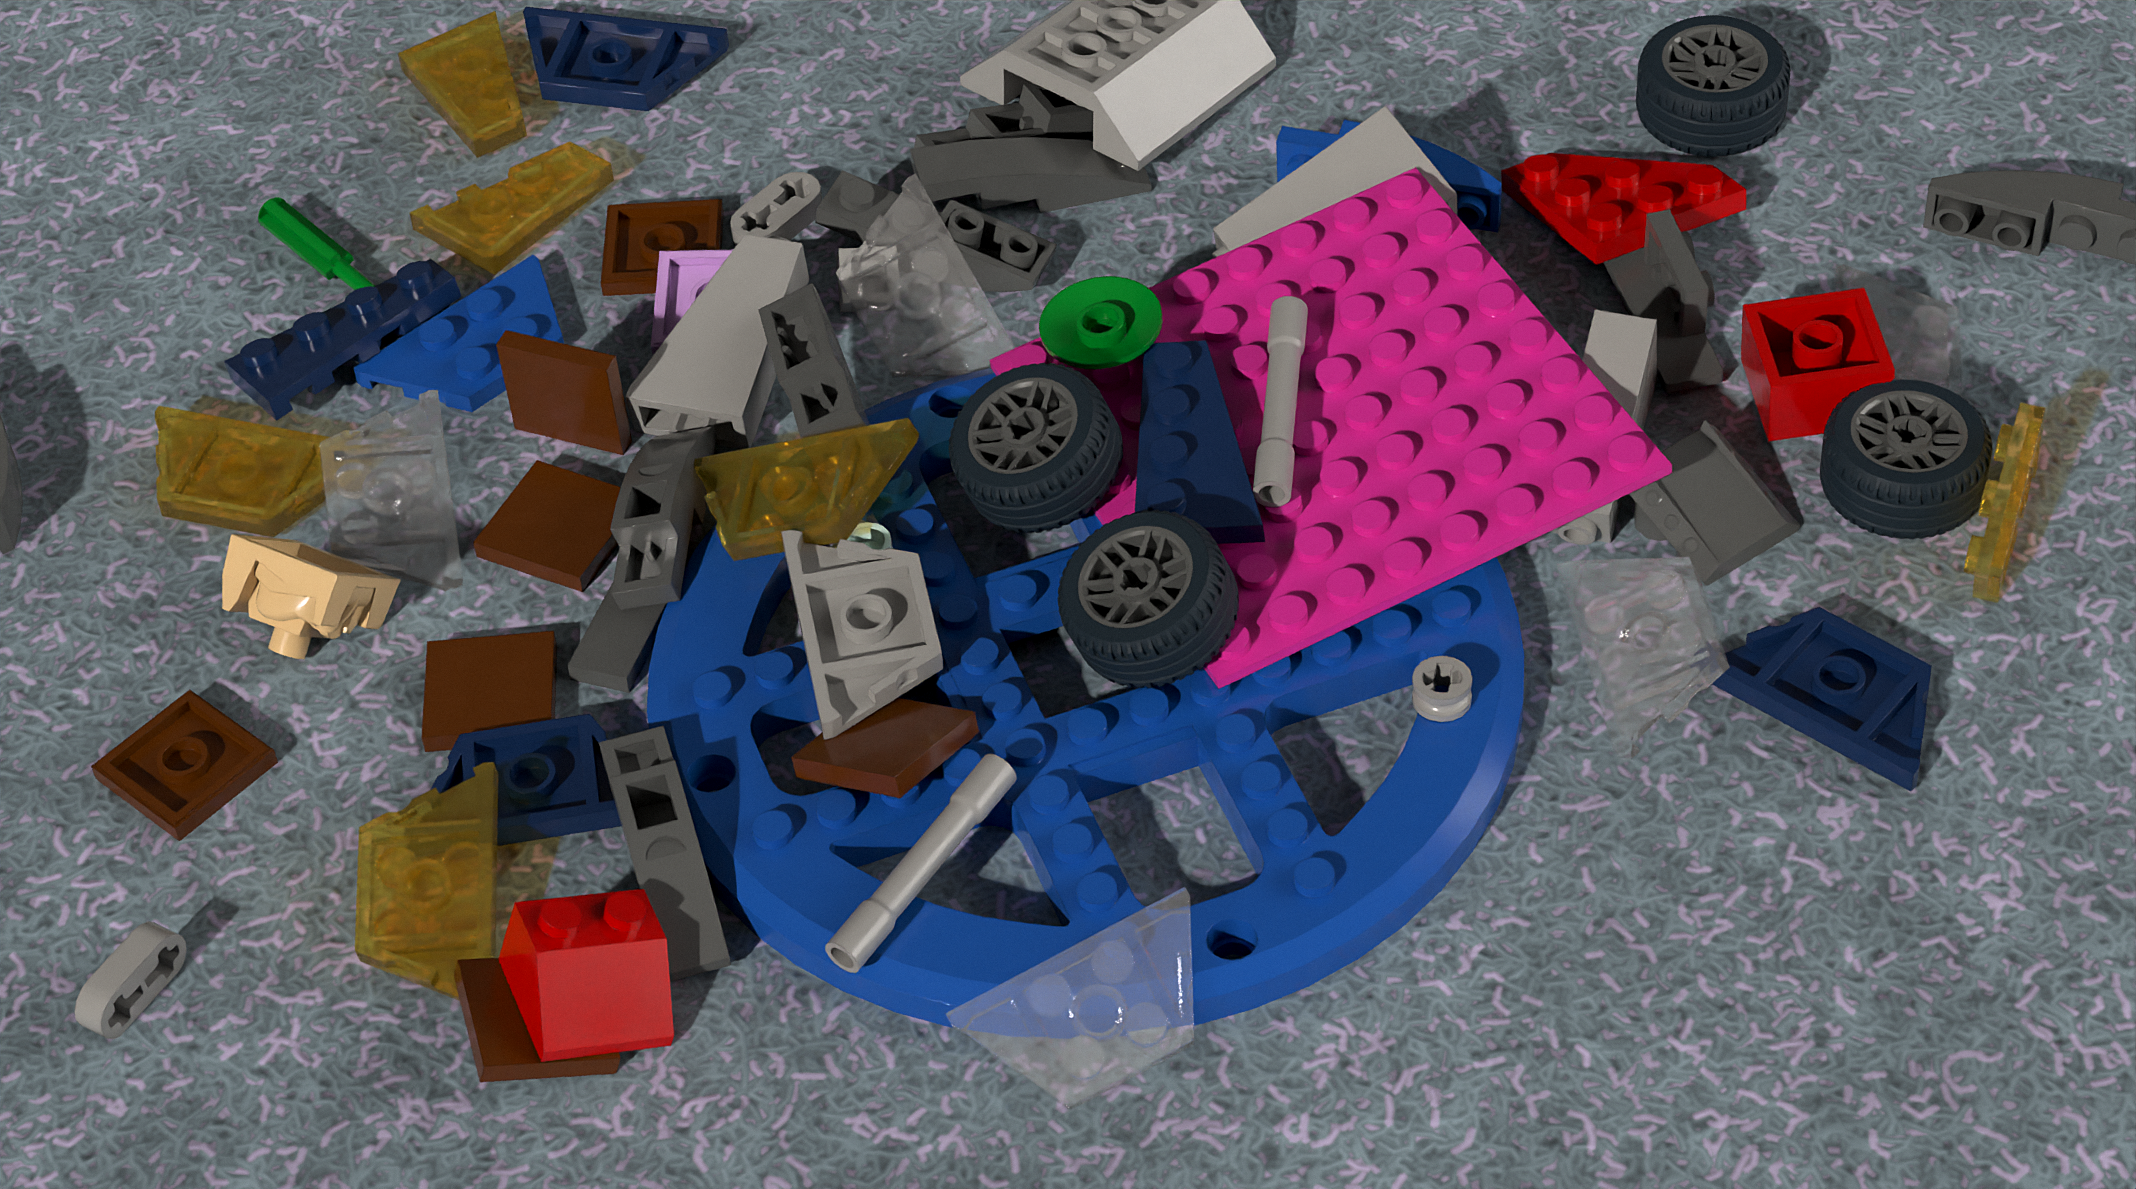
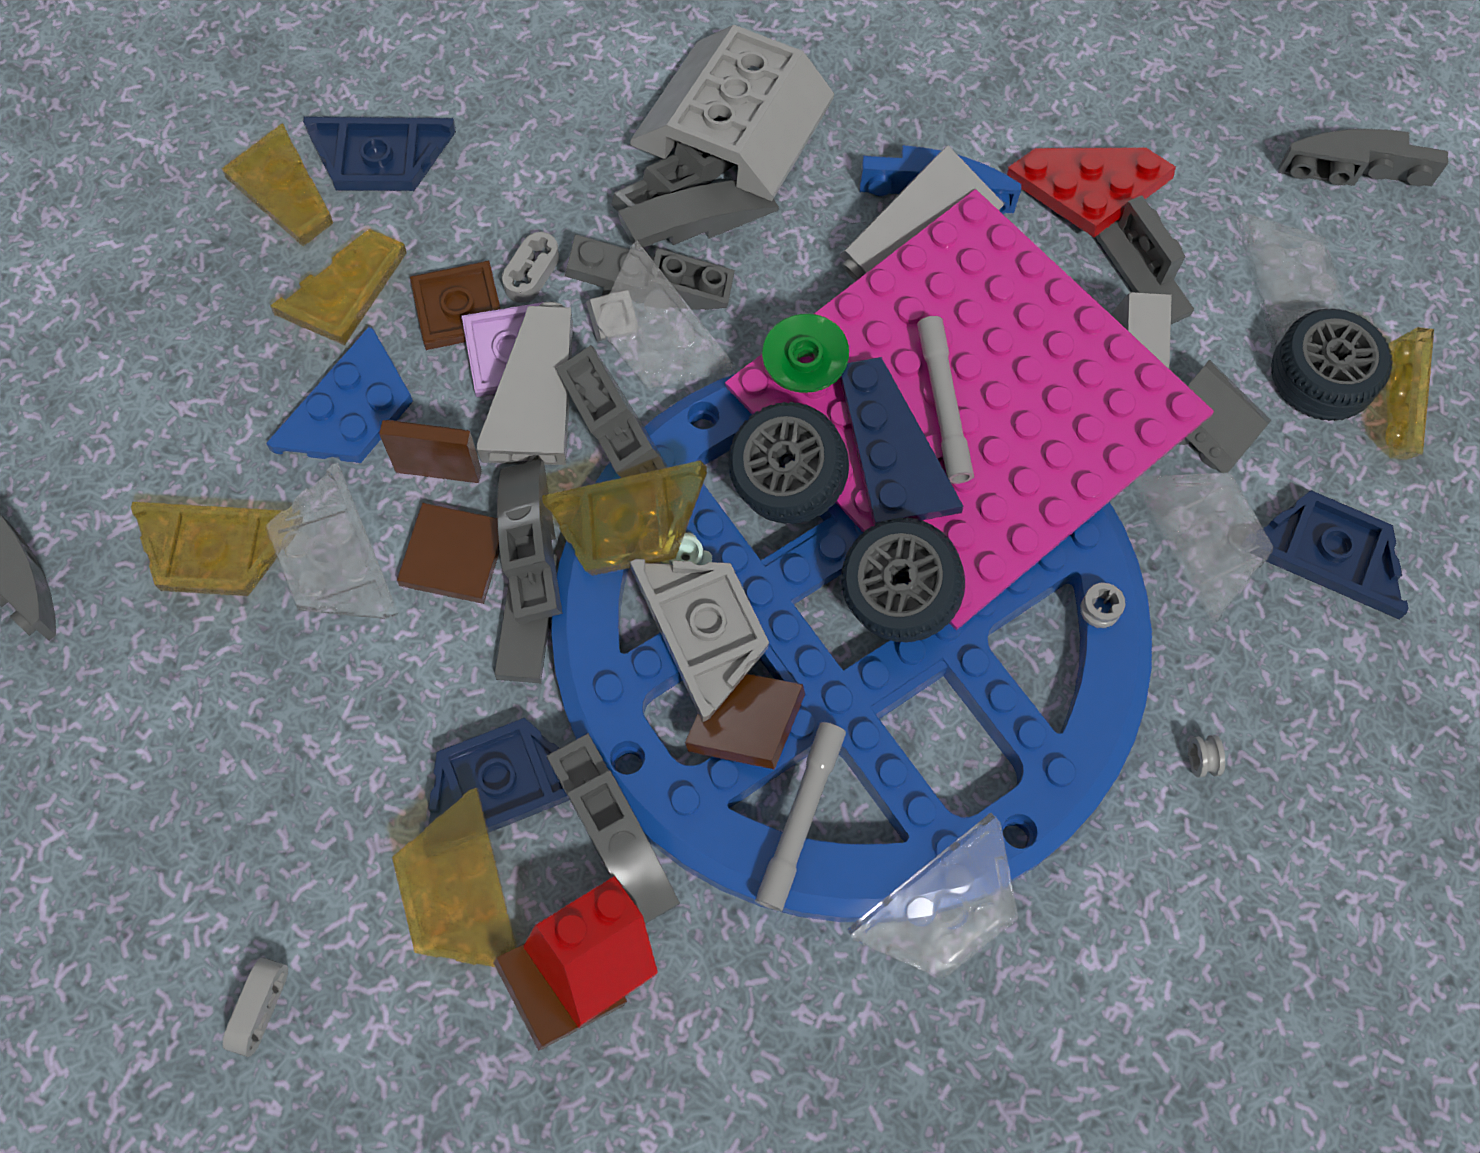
camera: 20 degrees left, 20 degrees up
(184, 764) = (239, 804): reddish brown tile -> none
(302, 591) = (289, 650): tan brick -> none
(310, 243) = (206, 340): green axle -> none
(319, 342) = (237, 428): dark blue wing -> none
(487, 685) = (442, 702): reddish brown tile -> none
(1546, 904) = (1206, 756): none -> light grey bush
(1712, 86) = (1126, 83): black wheel -> none
(1809, 357) = (1257, 298): red slope -> none

